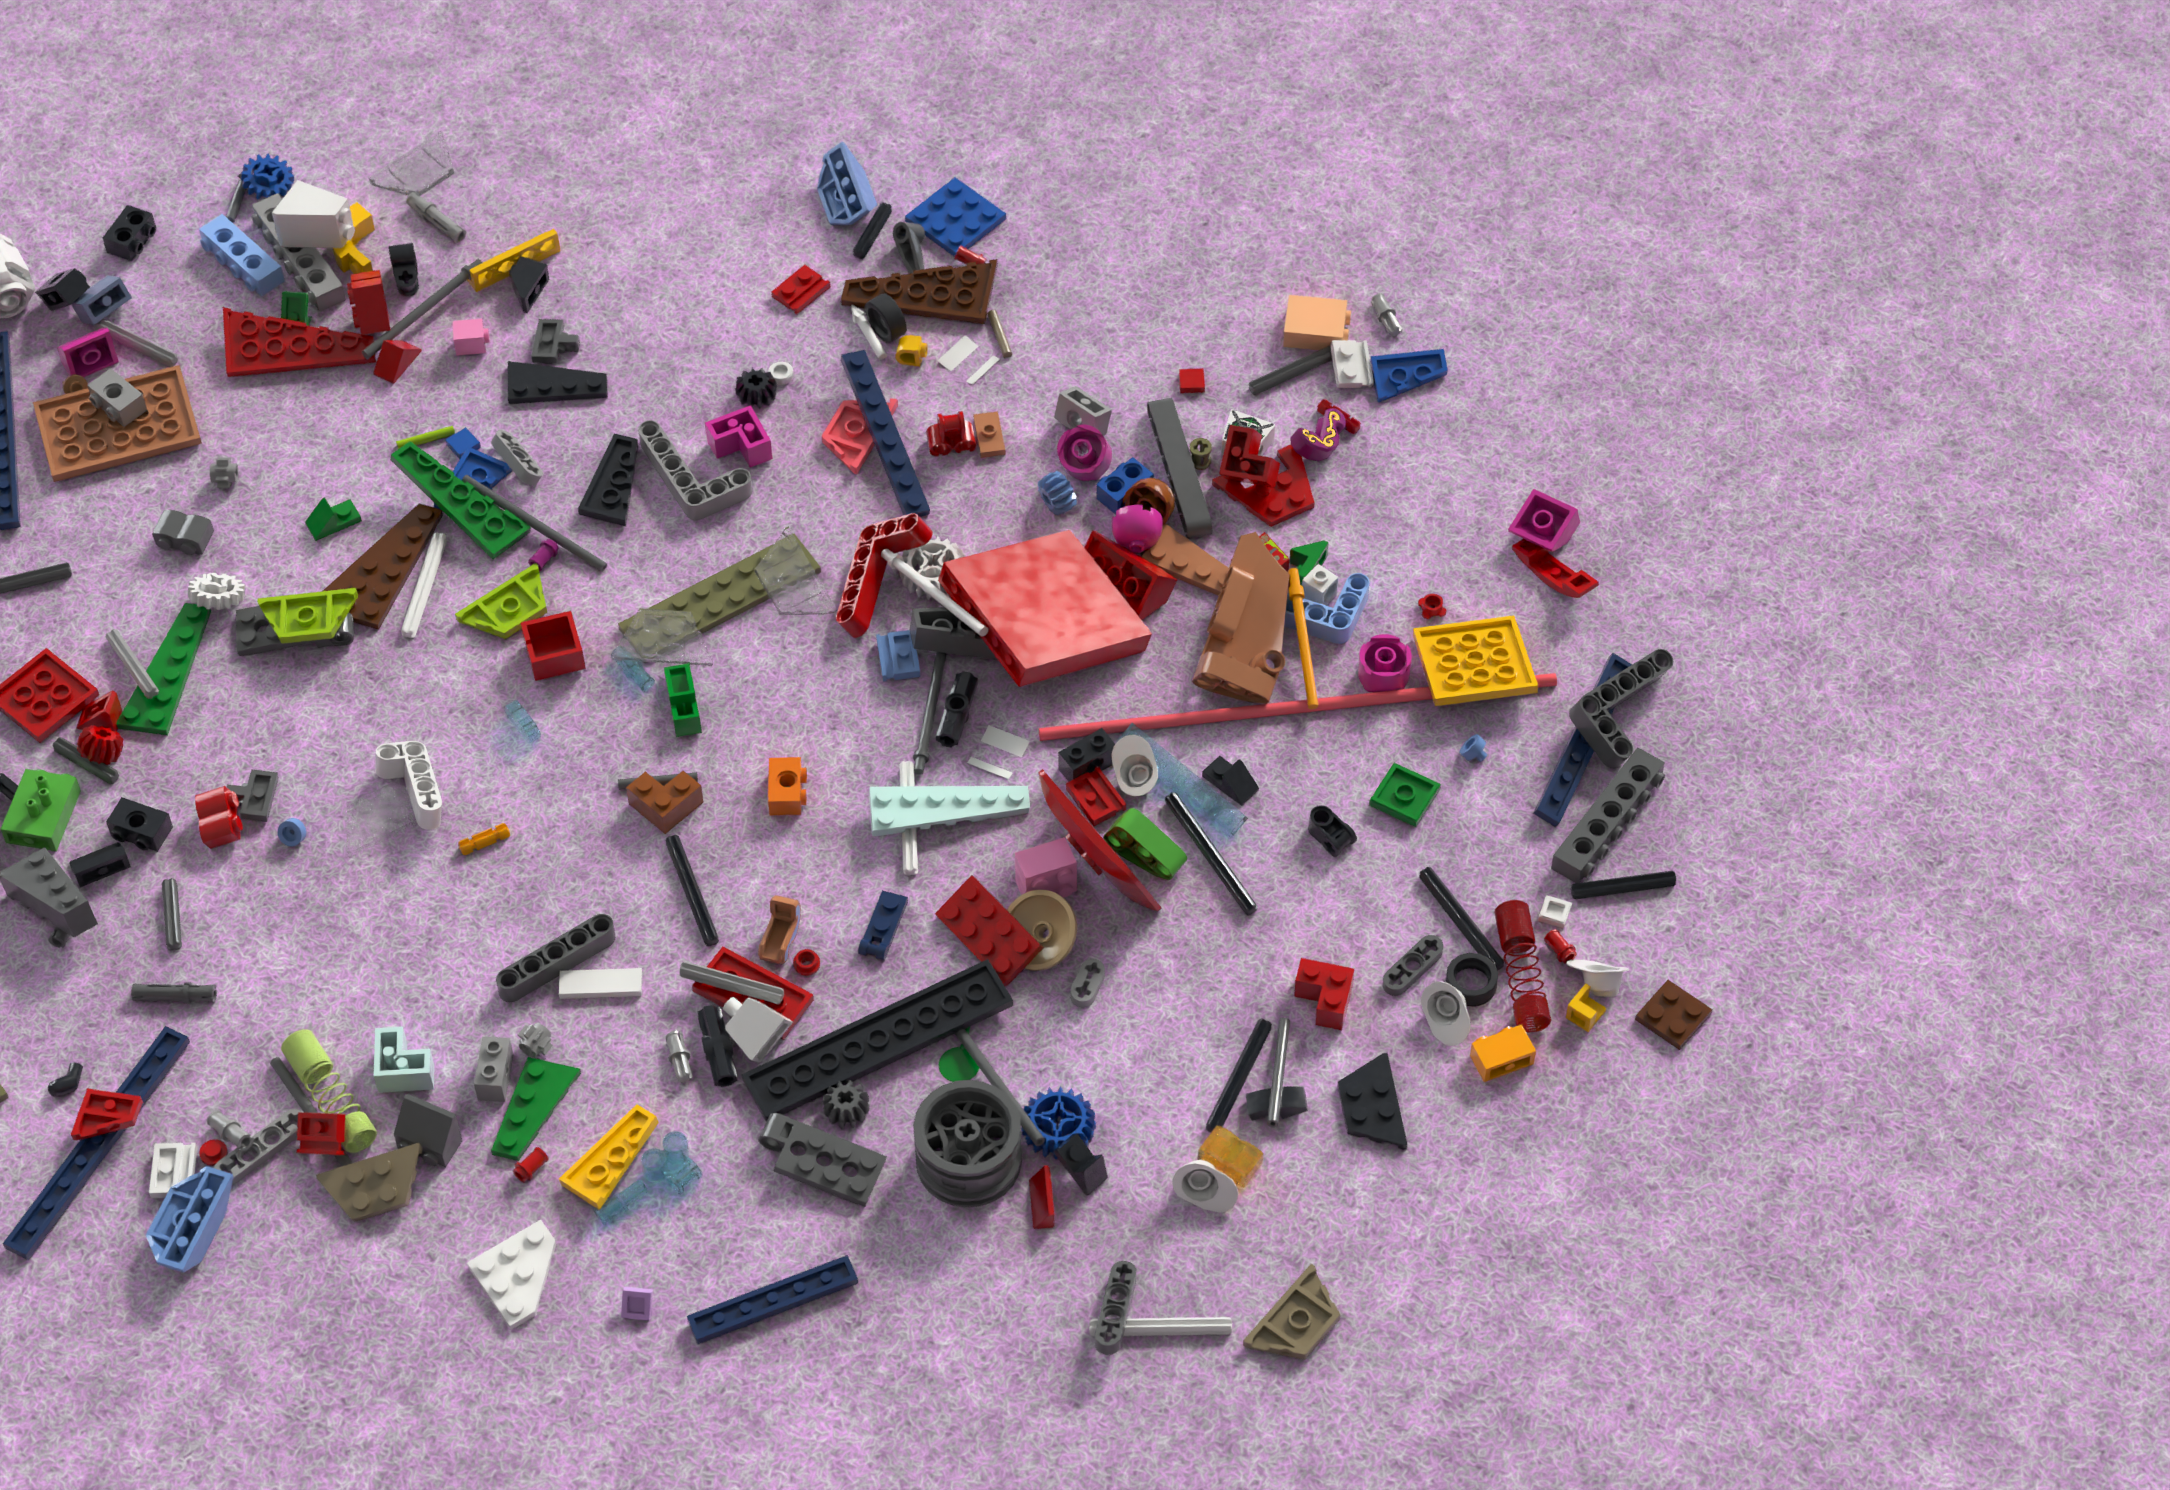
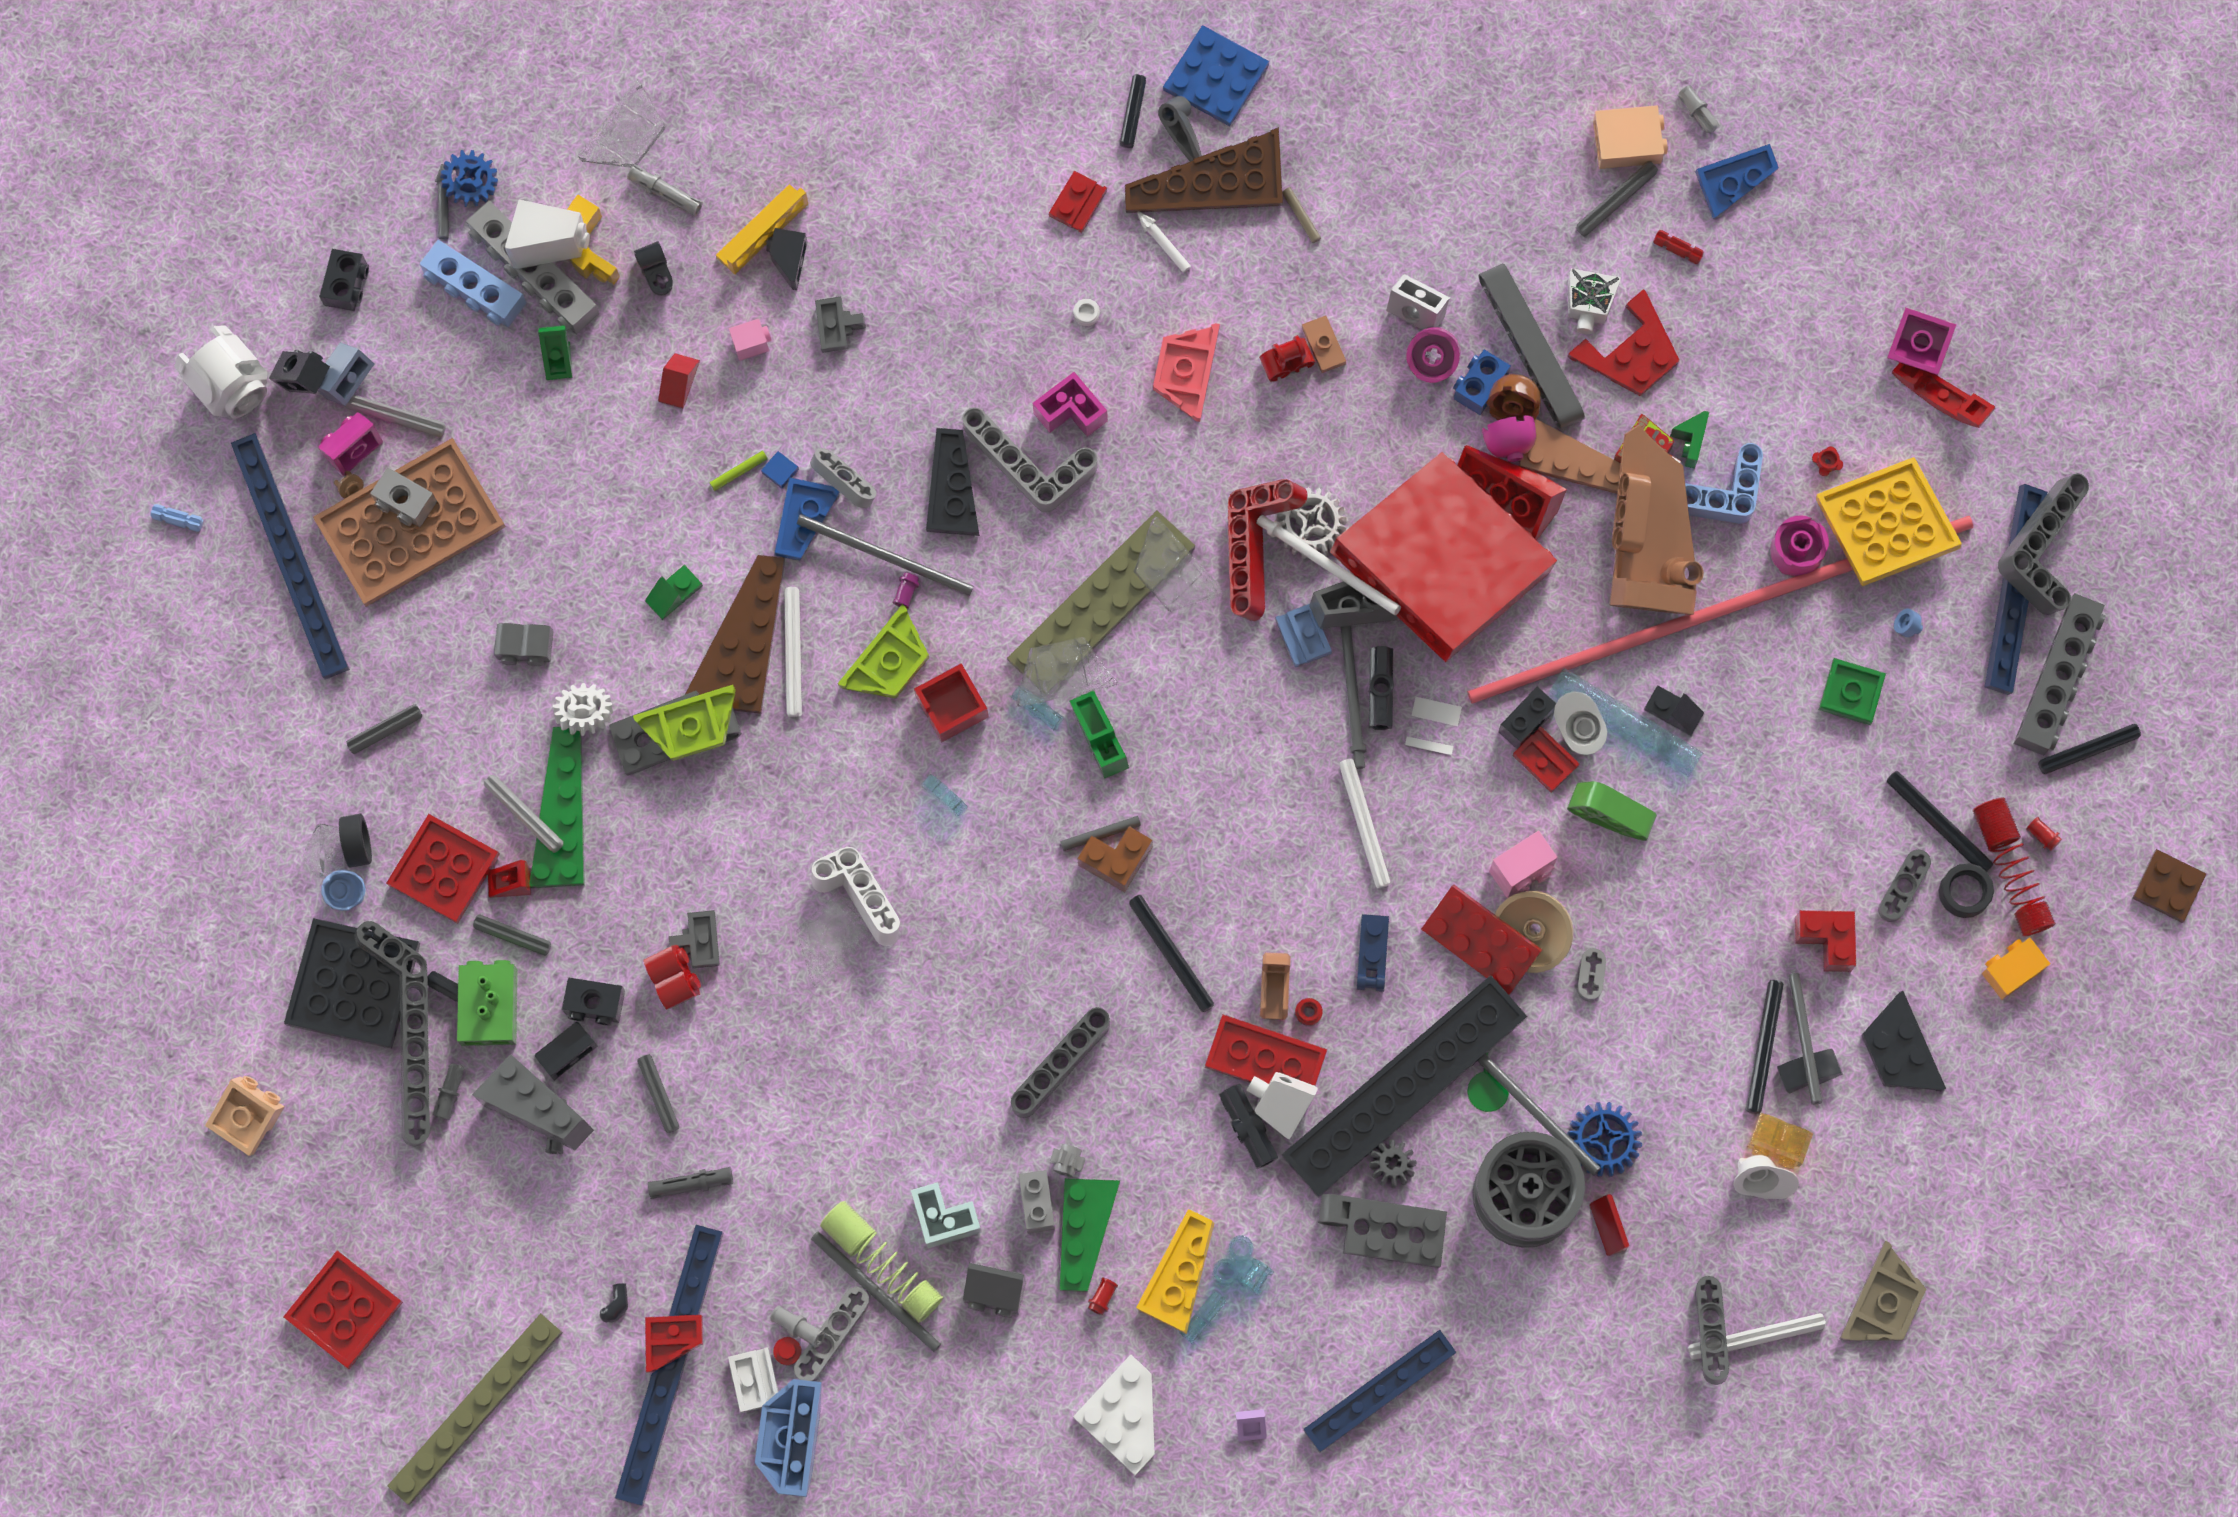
camera: 10 degrees left, 20 degrees up
(100, 744) = (524, 918): red gear -> none
(224, 472) = (543, 562): light grey gear -> none
(283, 345) = (548, 391): red wing -> none
(291, 832) = (750, 975): medium blue tile -> none
(320, 1133) = (891, 1314): red plate -> none
(370, 306) = (633, 324): red piece -> none
(374, 1183) = (957, 1354): dark tan wing -> none
(421, 309) = (696, 302): dark grey bar -> none
(475, 514) = (821, 558): green wing -> none
(484, 839) = (945, 939): light orange axle -> none
(545, 384) = (845, 377): black wing -> none
(600, 983) = (1111, 1078): white tile -> none
(679, 1056) = (1213, 1145): light grey axle -> none
(731, 982) = (1245, 1056): light grey axle -> none
(756, 388) = (1062, 346): black gear -> none
(783, 773) = (1232, 831): orange brick -> none
(844, 187) = (1092, 68): medium blue wedge -> none
(884, 433) = (1219, 371): dark blue plate -> none
(885, 318) = (1181, 227): black tyre -> none
(911, 350) = (1216, 257): yellow plate -> none
(922, 806) = (1378, 812): light aqua wing -> none
(959, 352) = (1264, 248): white sticker -> none
(967, 256) = (1246, 127): red pin -> none
(1057, 493) = (1416, 408): medium blue gear -> none
(1083, 1166) = (1639, 1181): black slope -> none
(1093, 846) = (1567, 830): red wedge -> none
(1192, 380) = (1516, 233): red tile -> none
(1205, 450) = (1553, 318): olive bush -> none
(1211, 853) = (1675, 799): black axle -> none
(1242, 460) = (1600, 335): red brick -> none
(1296, 595) = (1694, 486): light orange bar -> none
(1320, 585) = (1711, 464): white brick -> none
(1324, 441) = (1674, 281): magenta animal -> none
(1332, 834) = (1791, 751): black piece -> none
(1351, 363) = (1678, 180): white plate -> none
(1446, 1013) = (1952, 937): white piece -> none
(1555, 911) = (2029, 793): white tile -> none
(1584, 1010) = (2084, 901): yellow panel -> none
(1602, 978) = (2089, 859): white piece -> none

